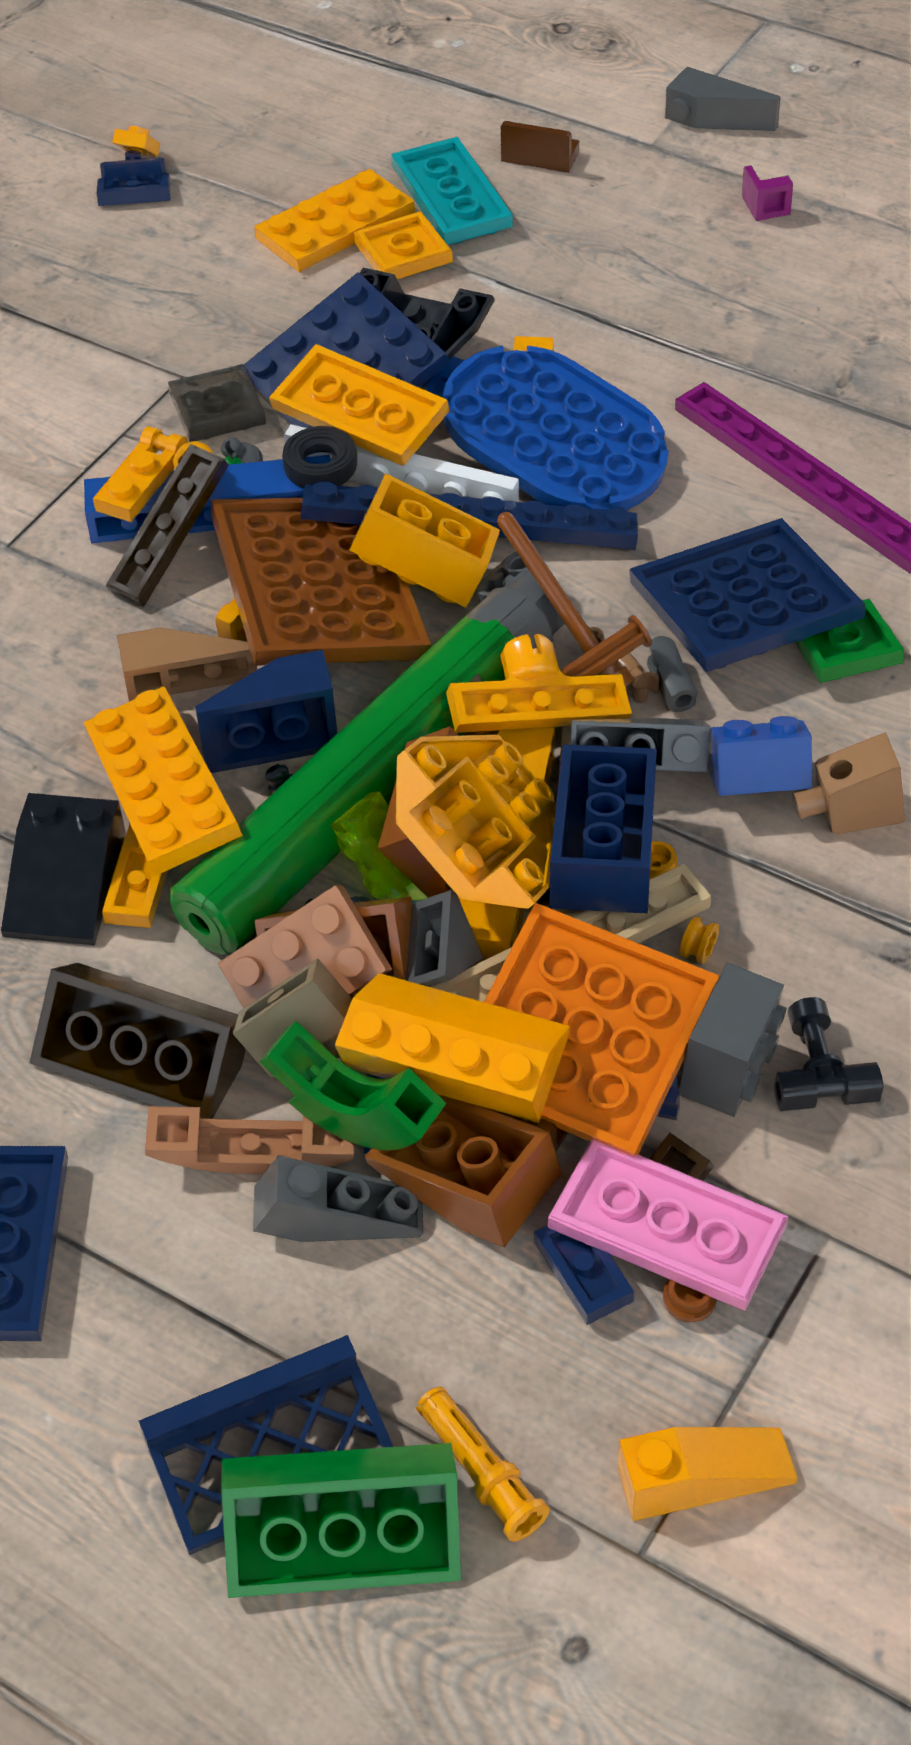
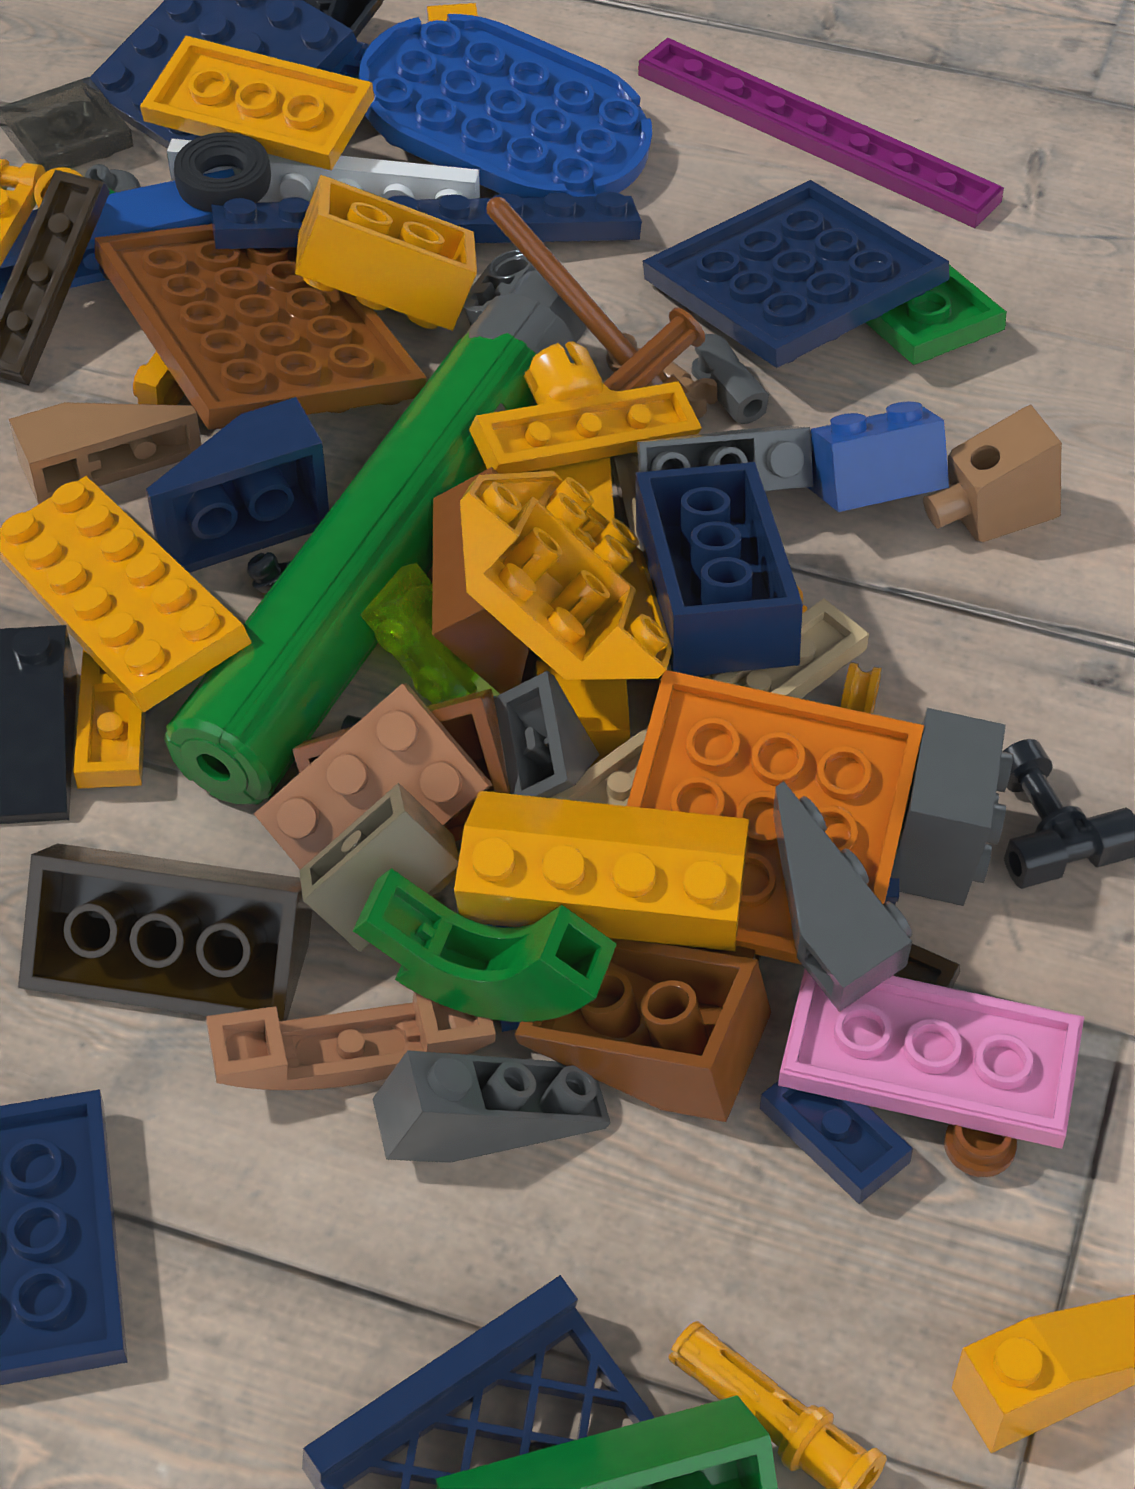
camera: 15 degrees left, 0 degrees up
(610, 1109) = (836, 920): none -> dark grey slope

